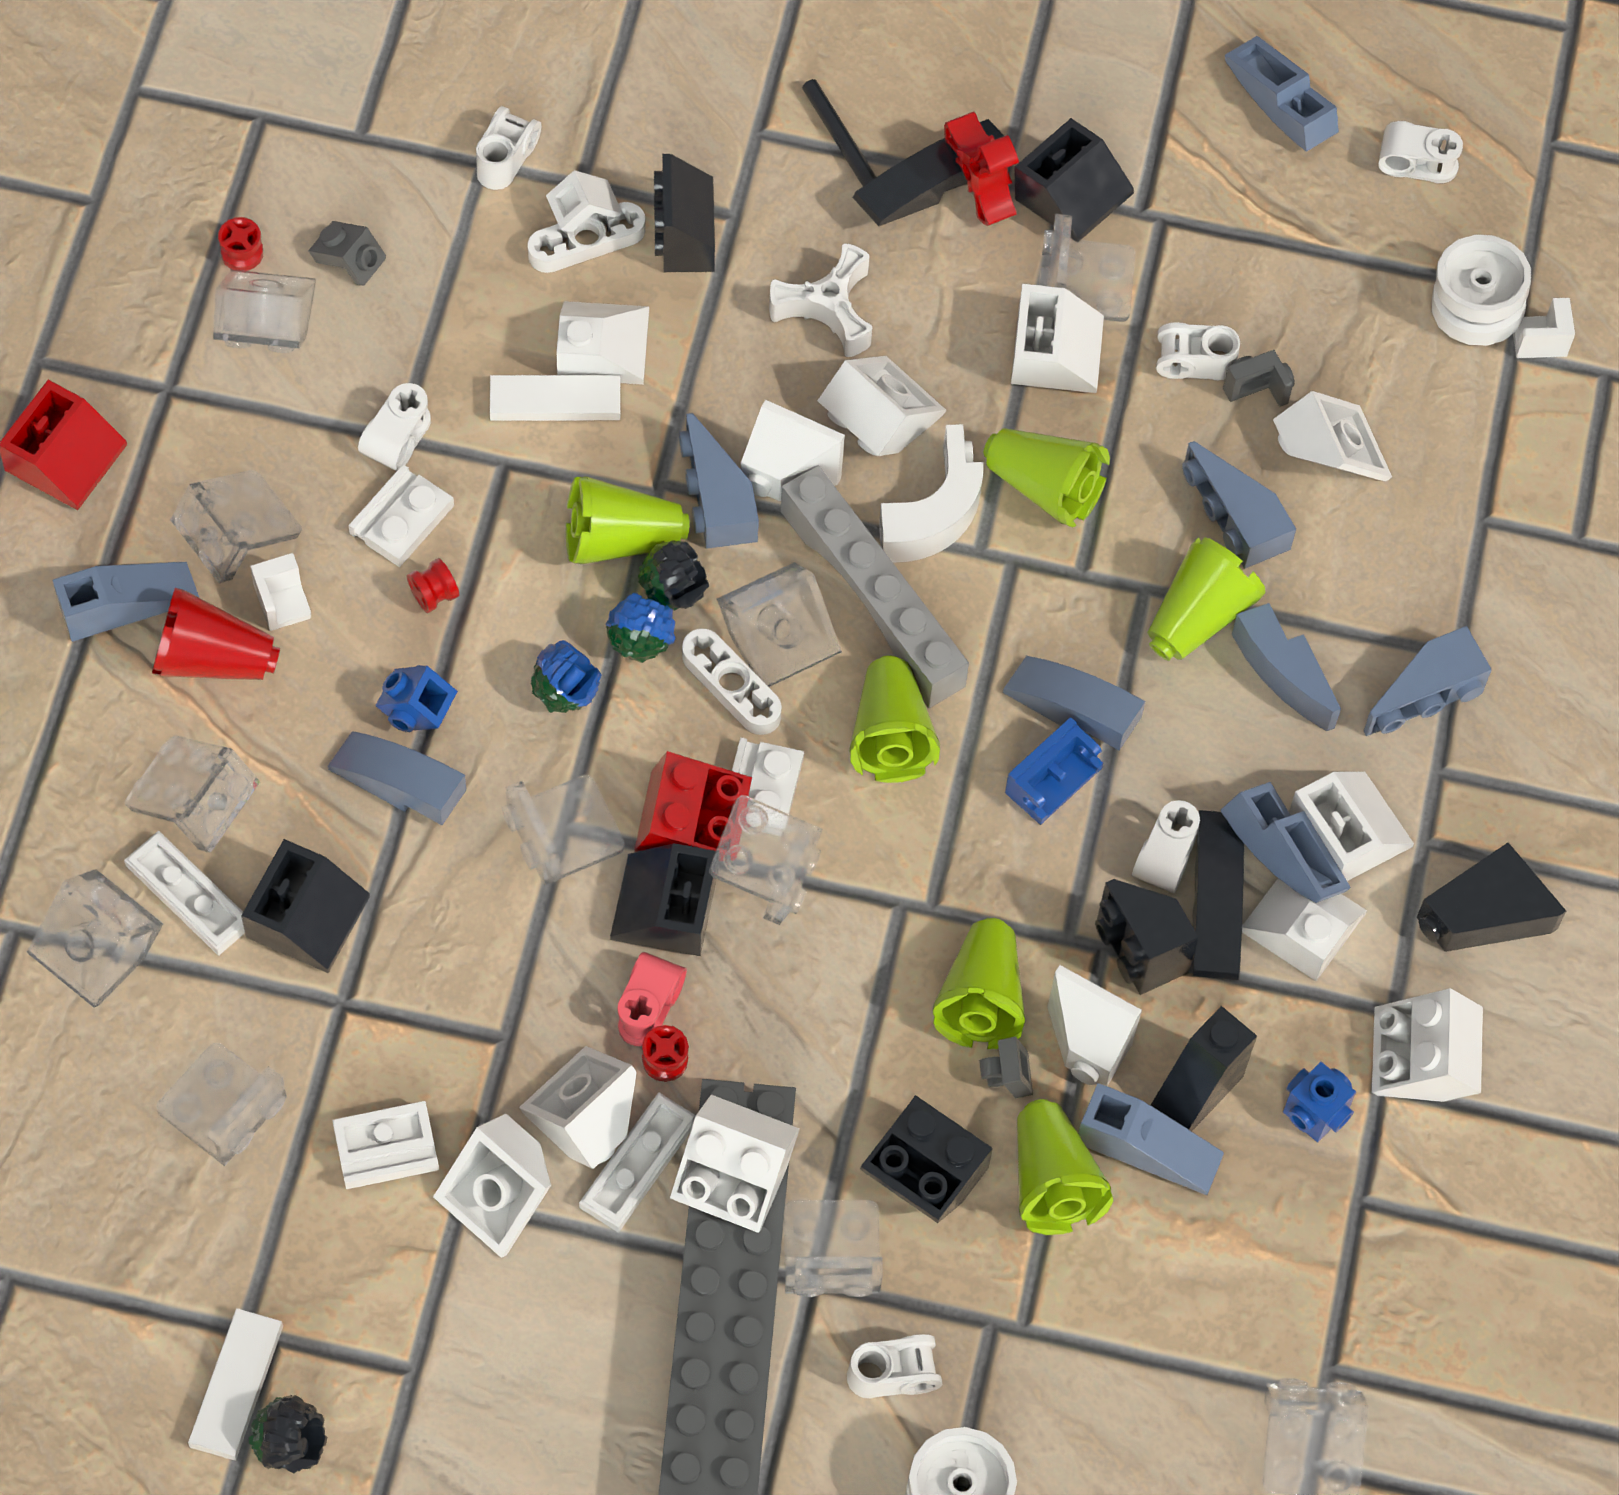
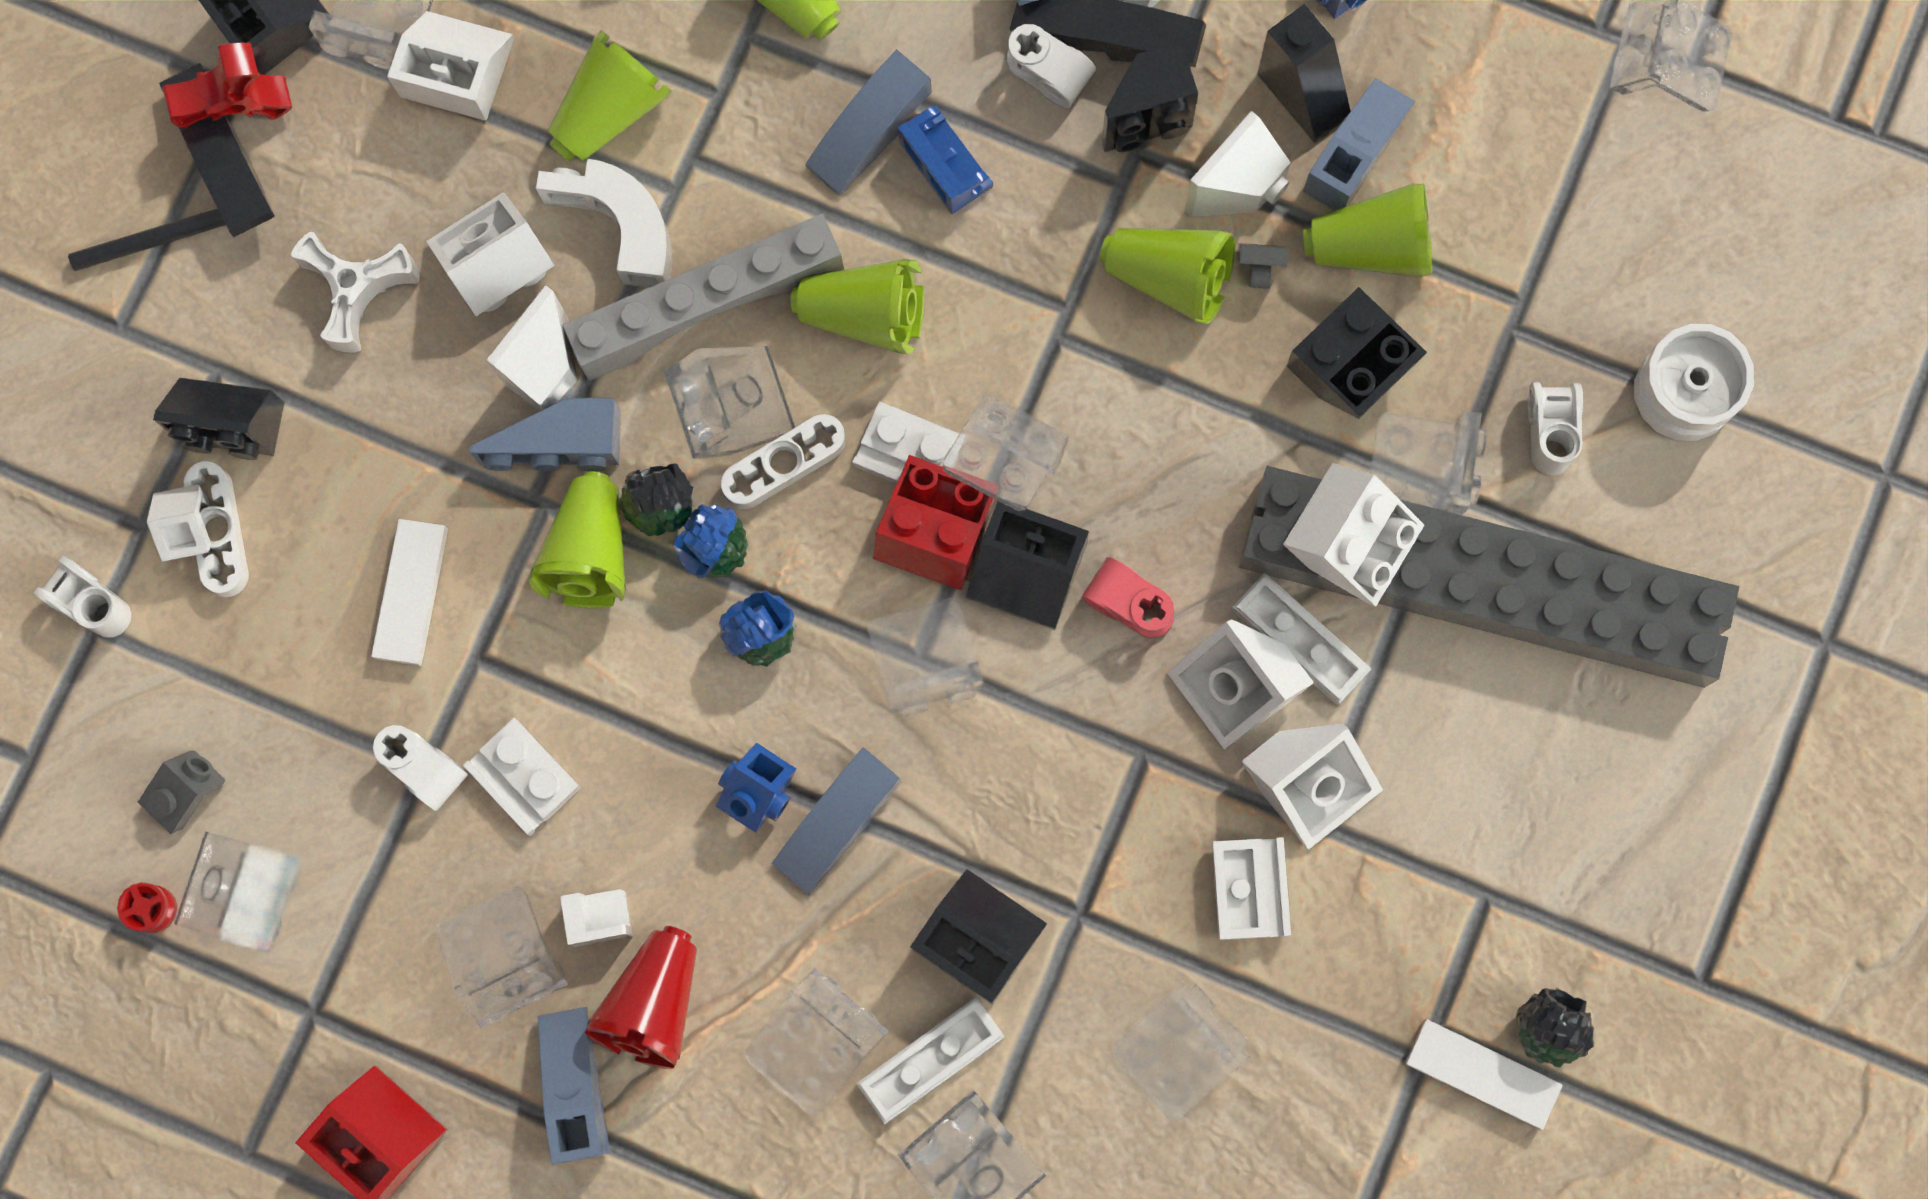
camera: 70 degrees left, 15 degrees up
(433, 585) = (618, 753): red wheel -> none
(603, 340) = (349, 532): white slope -> none
(665, 1042) = (1199, 586): red wheel -> none

